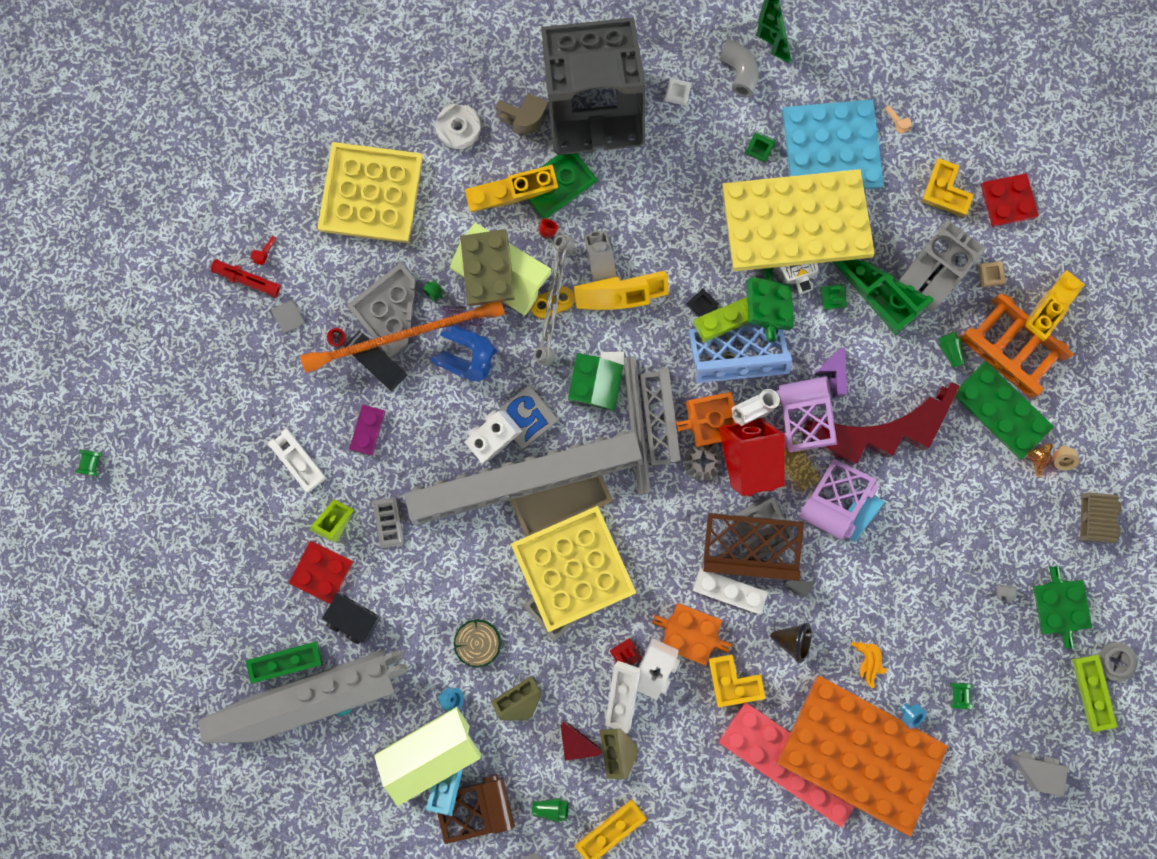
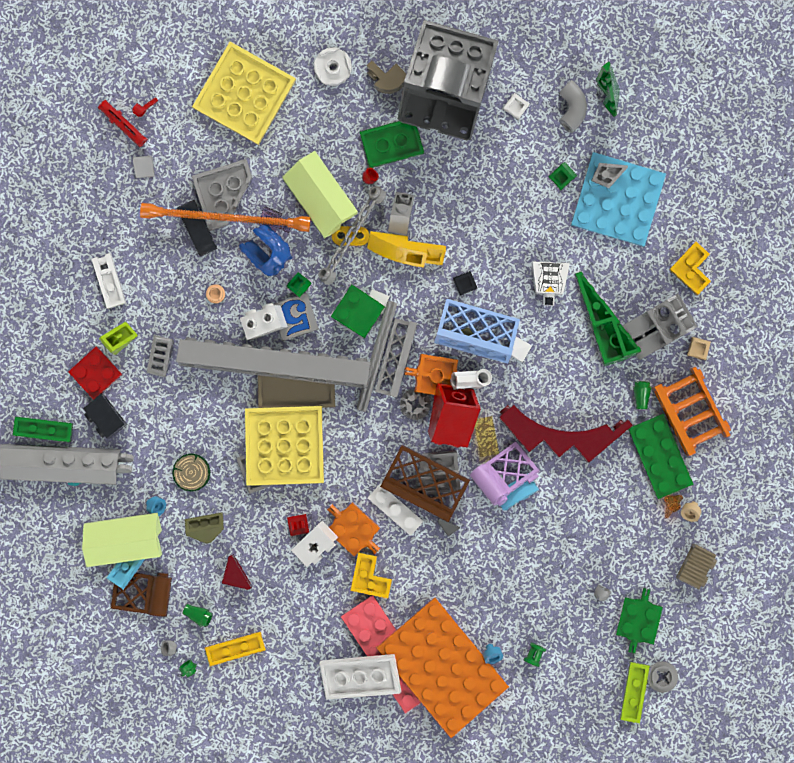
camera: 25 degrees right, 5 degrees up
(341, 338) = (178, 199): red hinge -> none
(367, 430) = (170, 278): magenta plate -> none
(425, 427) = (215, 293): none -> light nougat plate
(434, 290) = (262, 190): green plate -> none
(487, 267) = (309, 191): olive plate -> none
(512, 189) = (353, 135): yellow slope -> none
(516, 378) = (298, 284): none -> green plate
(618, 753) = (263, 594): olive slope -> none
(622, 696) = (282, 554): white plate -> none
(722, 320) = (480, 302): lime plate -> none
(769, 304) = (515, 304): green plate -> none
(772, 806) = (360, 676): none -> white tile
(794, 640) = (428, 565): hat -> none
(797, 220) = (563, 247): light yellow plate -> none
(797, 353) = (520, 349): none -> white slope
(806, 395) = (512, 385): lavender piece -> none
(810, 122) = (607, 174): none -> light grey piece
(833, 297) = (568, 317): green tile -> none
(837, 368) = (546, 372): medium lavender slope -> none
(872, 663) = (479, 604): light orange piece -> none
(901, 125) = (680, 203): light nougat hand -> none
(1009, 200) = (738, 296): red plate -> none
(1042, 775) = (569, 735): light grey slope -> none
(1054, 305) = (732, 392): yellow slope -> none

